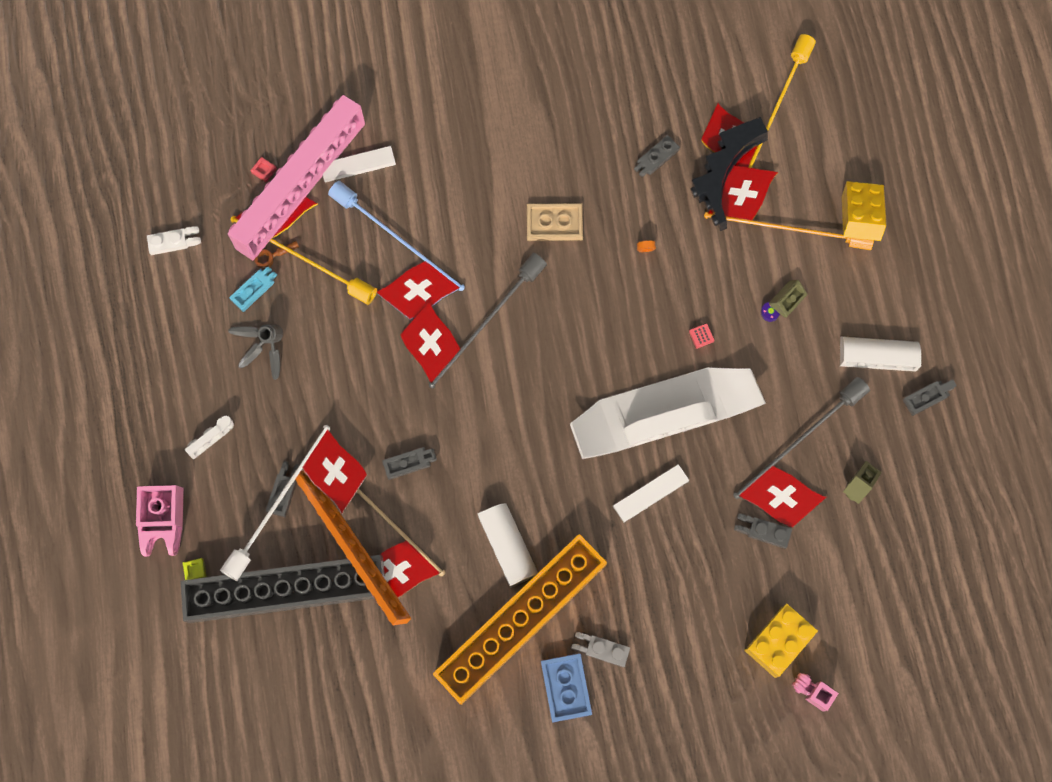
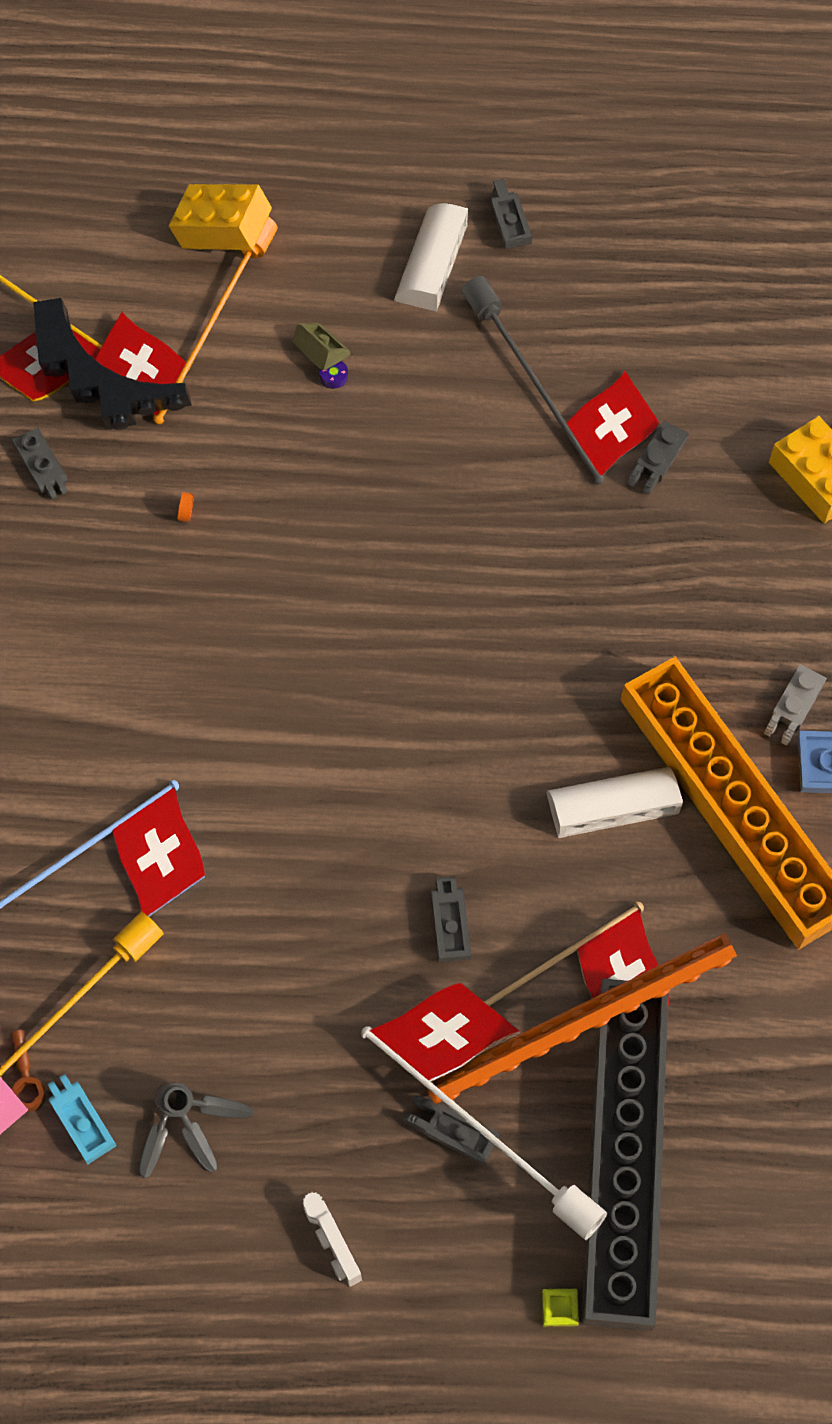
camera: 80 degrees left, 10 degrees down
(161, 523) = (472, 1347): bright pink brick -> none
(433, 342) = (259, 844): red flag -> none
(554, 222) = (103, 627): tan tile -> none
(651, 493) = (573, 589): white tile -> none
(665, 409) = (452, 536): white piece -> none
(701, 336) = (347, 469): coral tile -> none
(862, 482) = (616, 321): olive slope -> none

